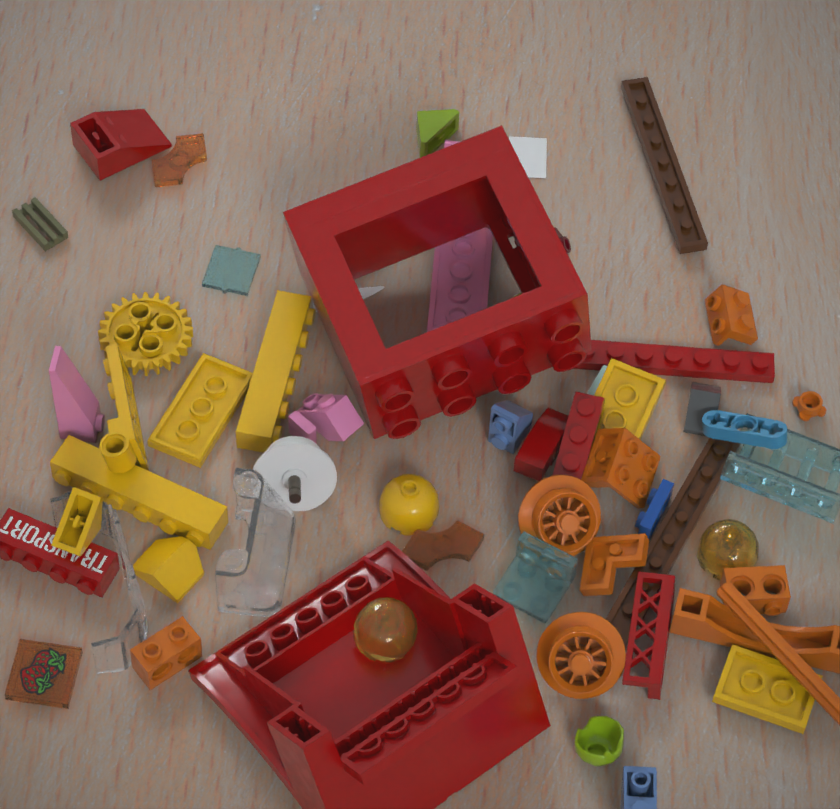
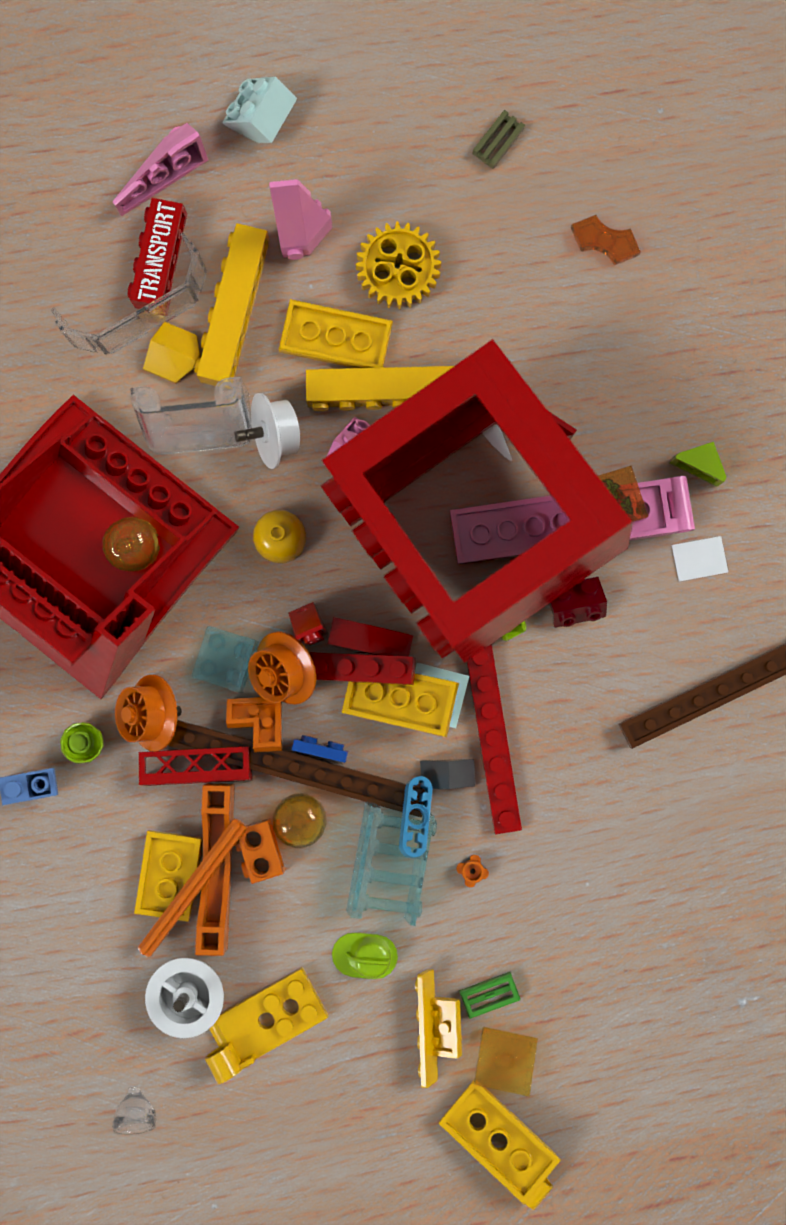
camera: 80 degrees right, 30 degrees up
(43, 673) = (51, 282): clear orange tile -> none
(79, 522) = (168, 263): yellow slope -> none
(117, 140) = (609, 177): red slope -> none
(125, 431) = (295, 273): yellow hinge -> none
(166, 653) = (84, 372): orange brick -> none
(231, 270) = (493, 320): clear light blue piece -> none
(301, 426) = (330, 427): bright pink tile -> none
(455, 542) = (253, 585): clear orange tile -> none
(509, 425) = (376, 604): medium blue slope -> none
(516, 478) = (307, 624): none -> red slope
(622, 464) = (352, 711): orange bracket -> none
(730, 316) = (554, 783): orange bracket -> none

